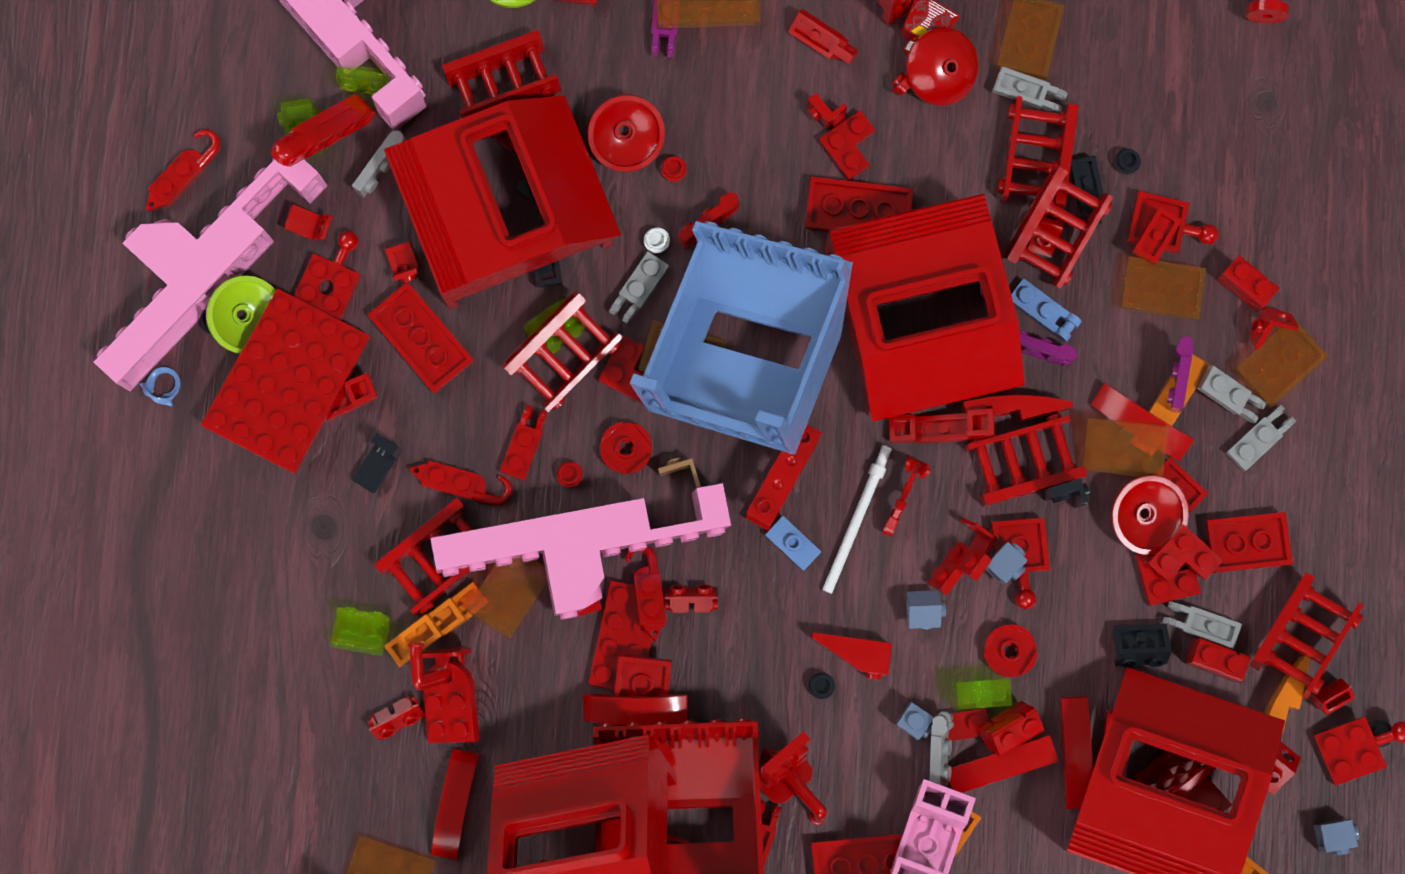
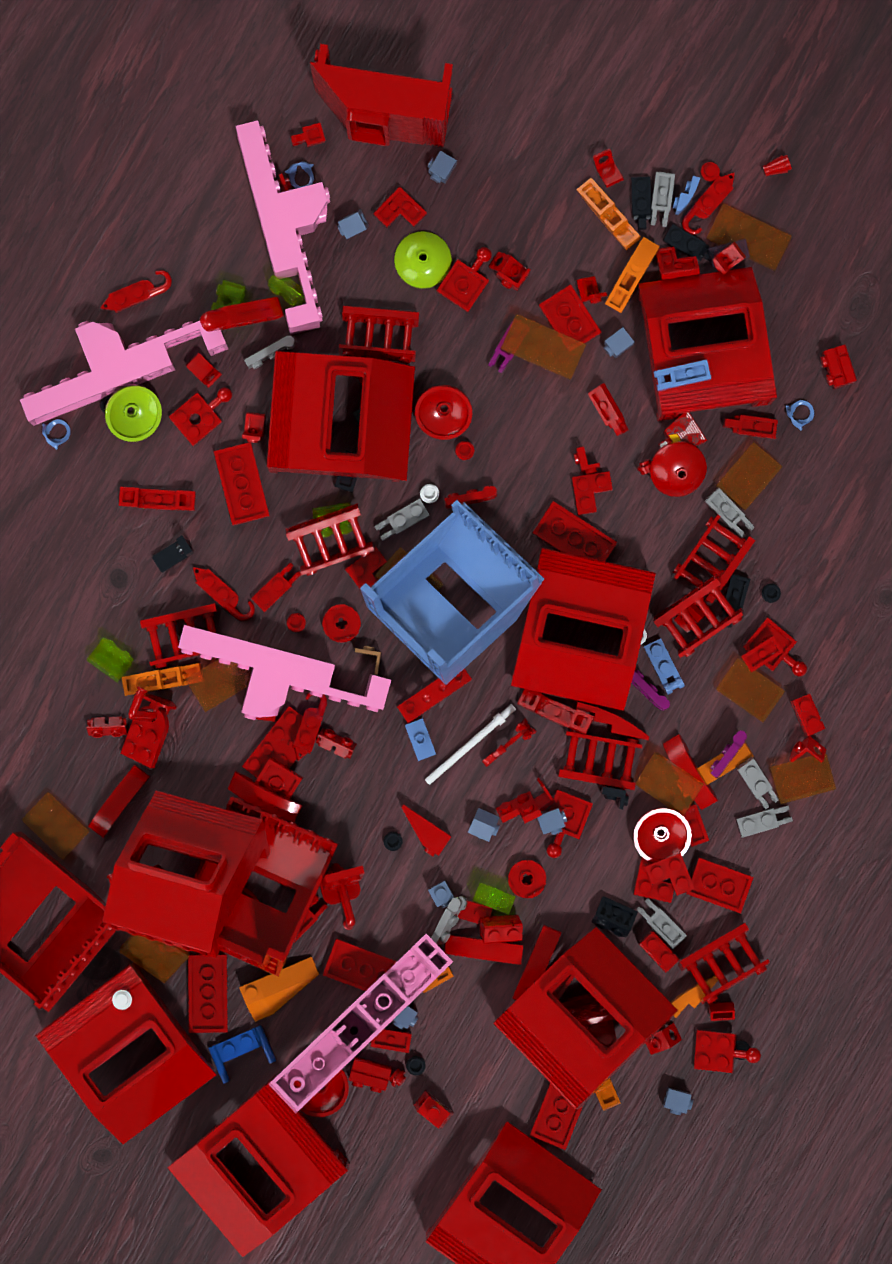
camera: 25 degrees right, 5 degrees up
(286, 381) = (139, 471): red plate -> none

